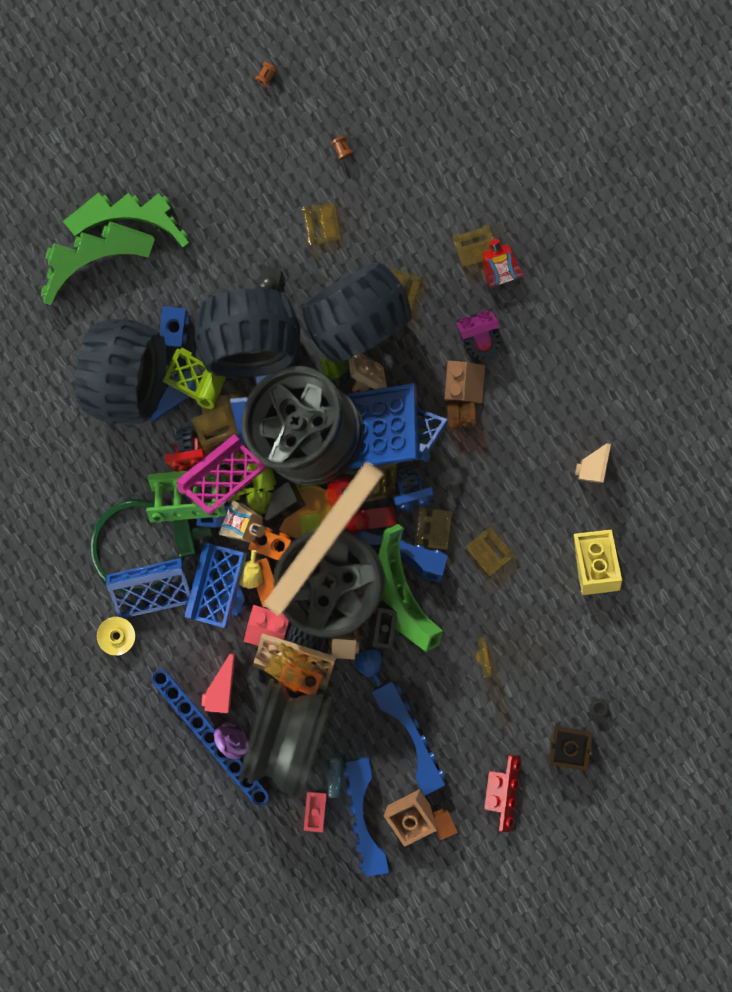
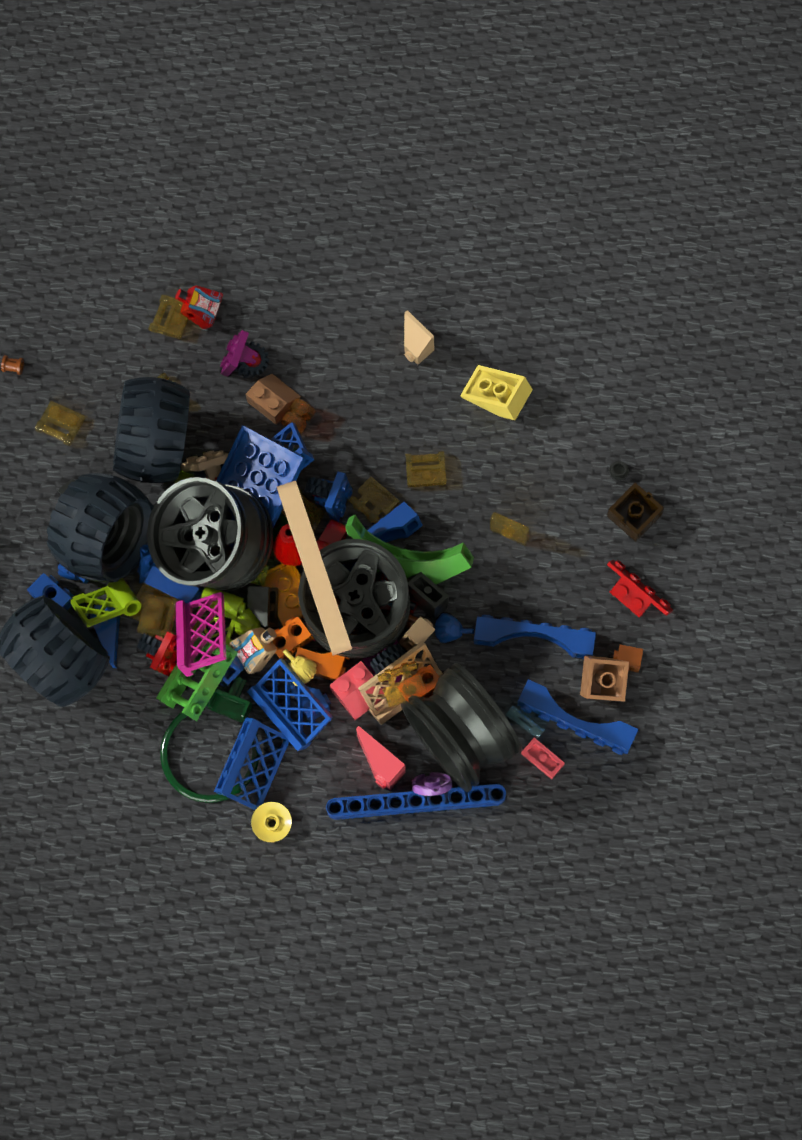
camera: 50 degrees left, 15 degrees down
(247, 385) = (145, 563): none -> blue hinge
(309, 523) = (291, 594): clear neon green panel -> none

